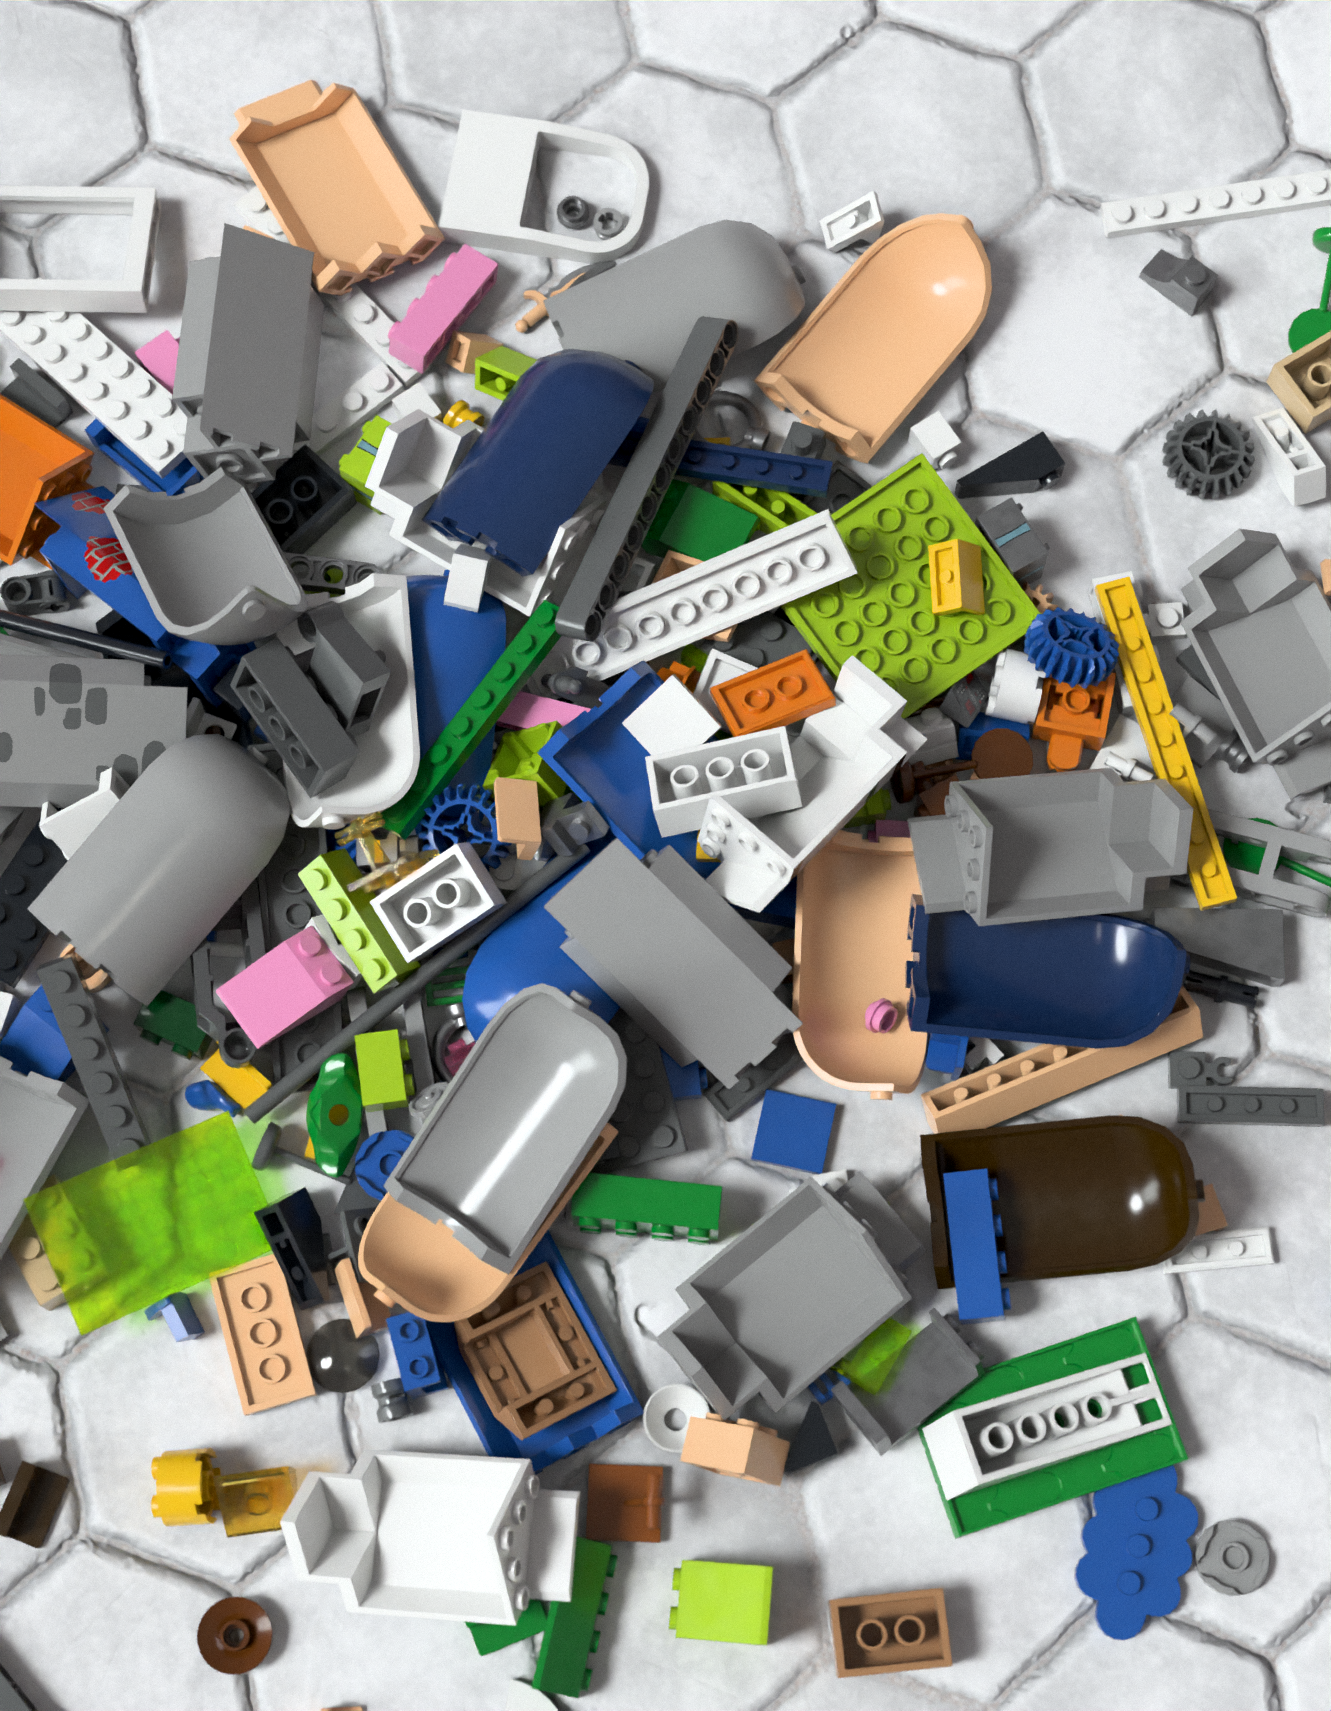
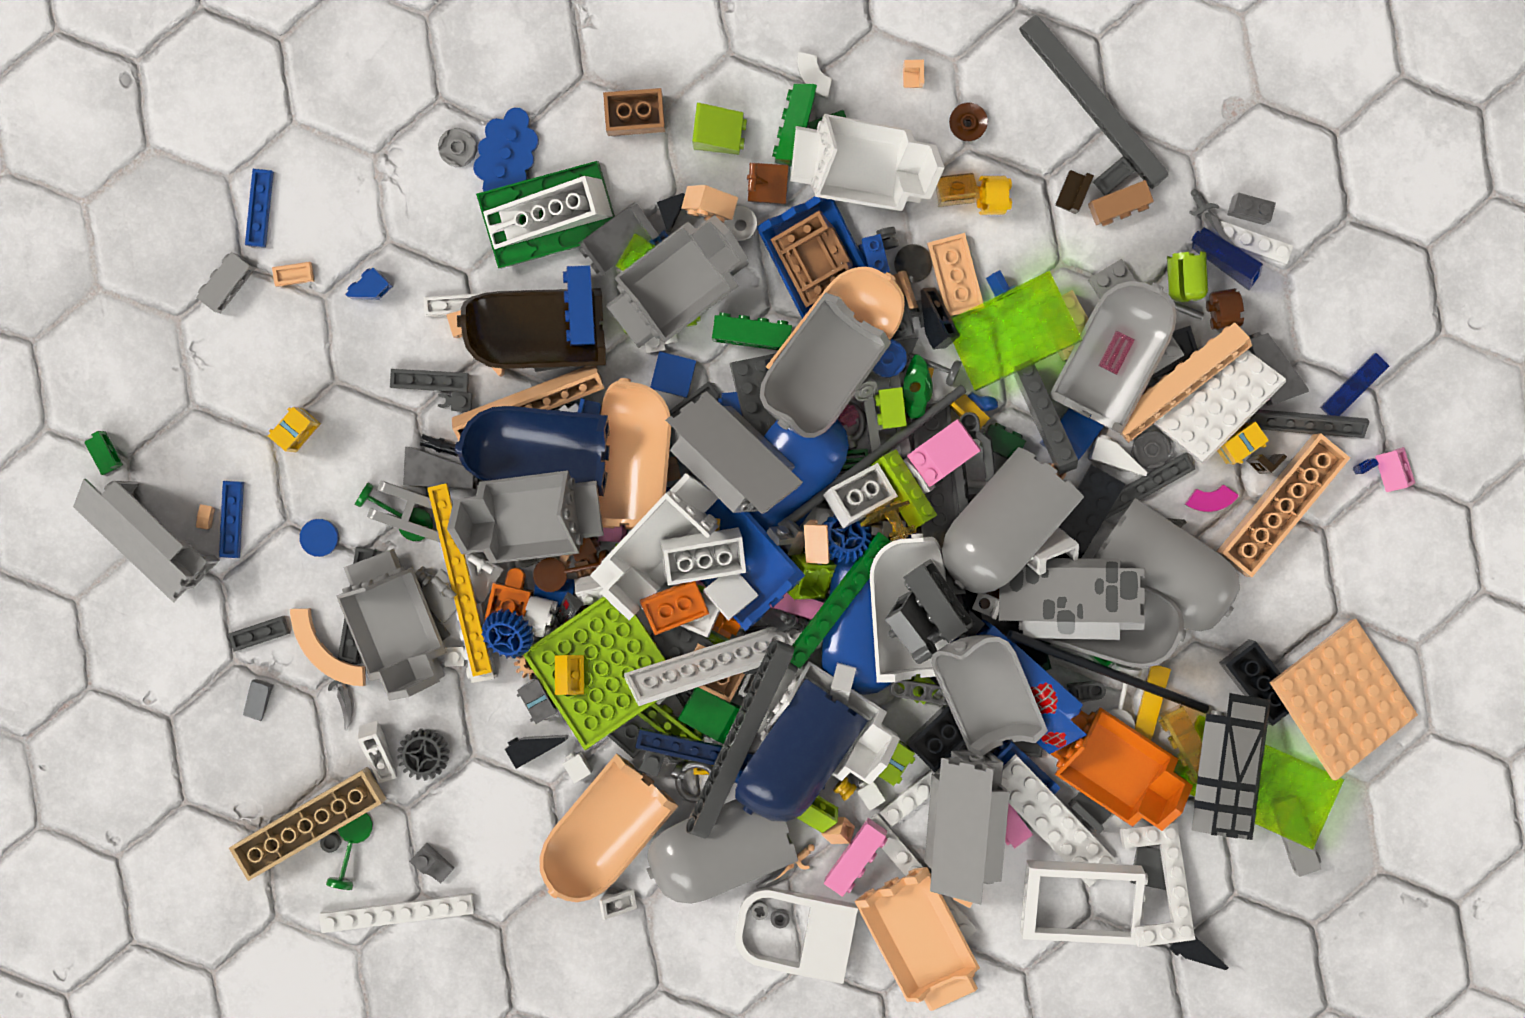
camera: 175 degrees right, 15 degrees up
(880, 1016) = (623, 431): bright pink plate -> none

